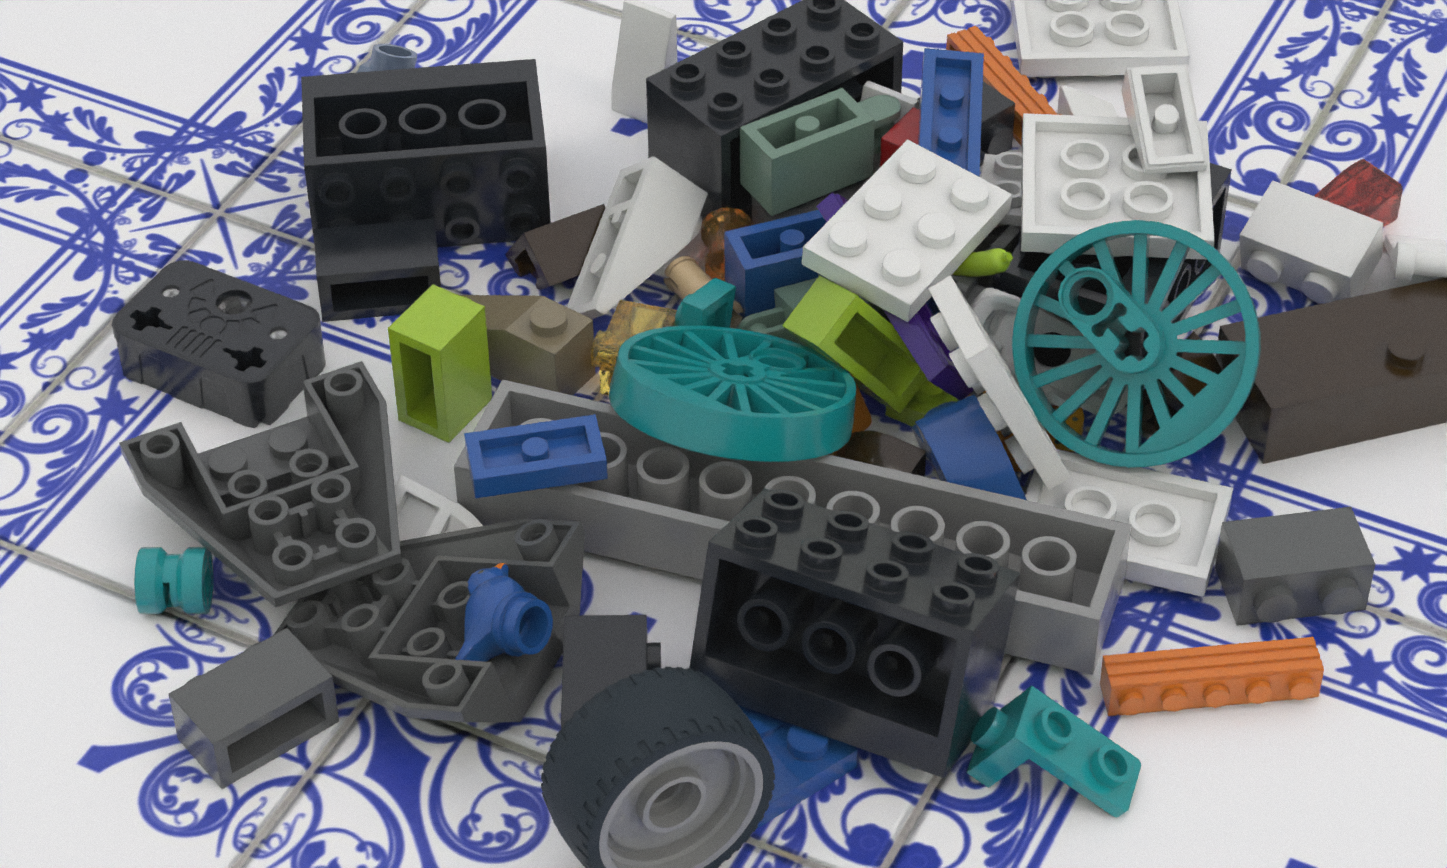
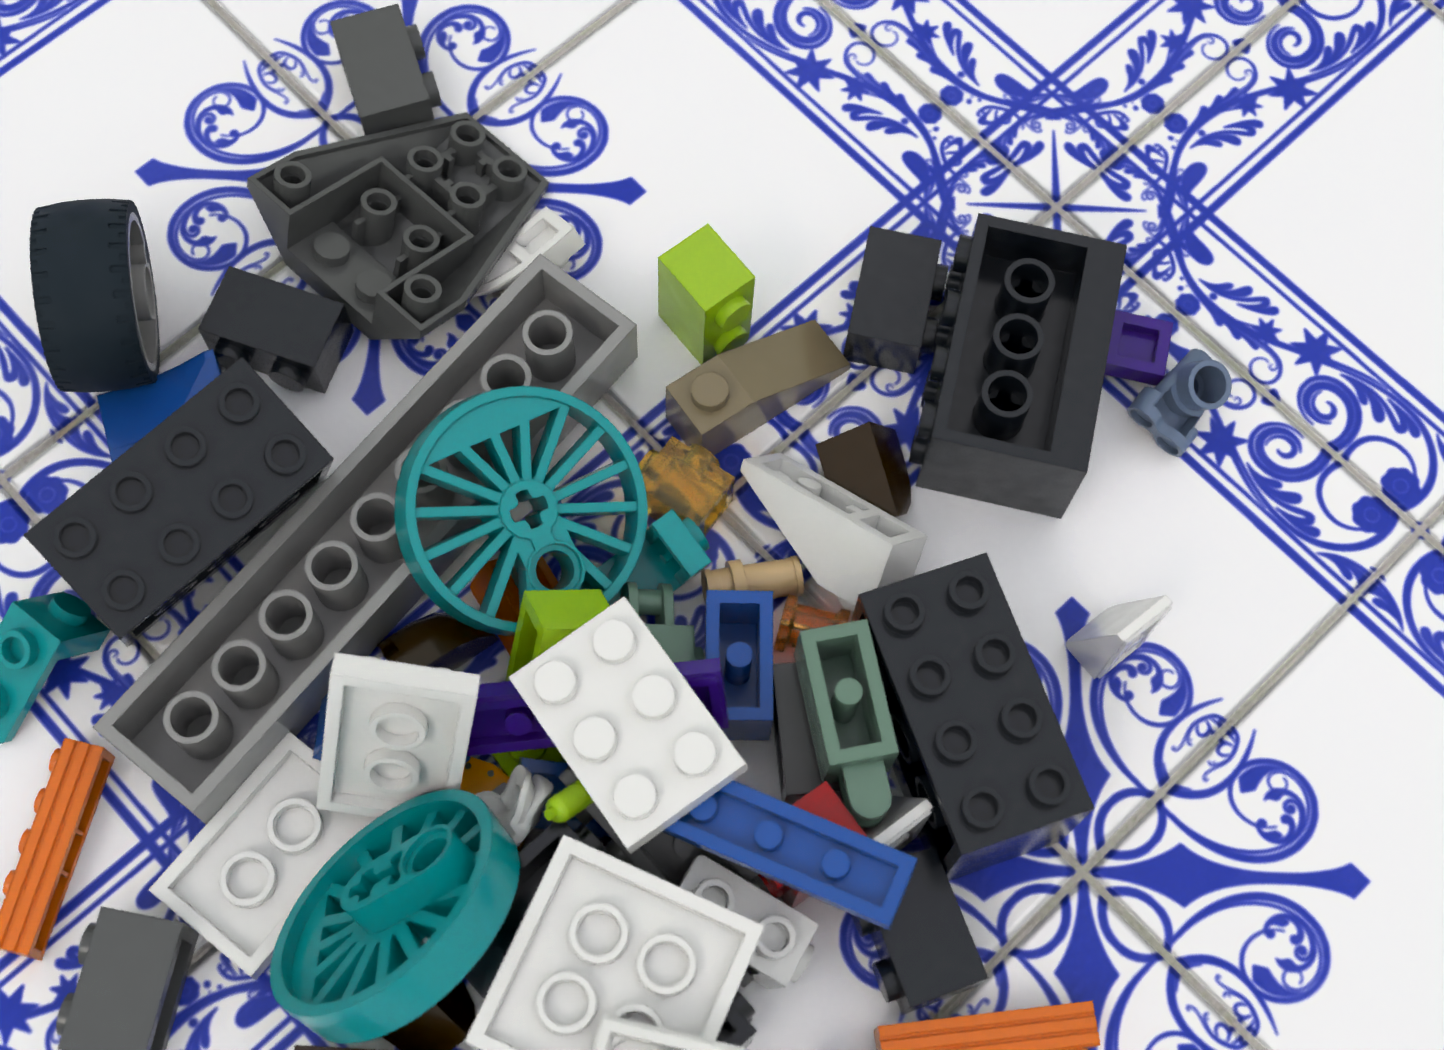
camera: 105 degrees right, 25 degrees up
(174, 580) = (549, 56): teal wheel -> none
(219, 343) = (836, 147): black axle -> none
(291, 502) = (599, 135): dark grey wedge -> none
(502, 617) = (355, 248): blue animal -> none
(535, 456) = (495, 304): blue plate -> none

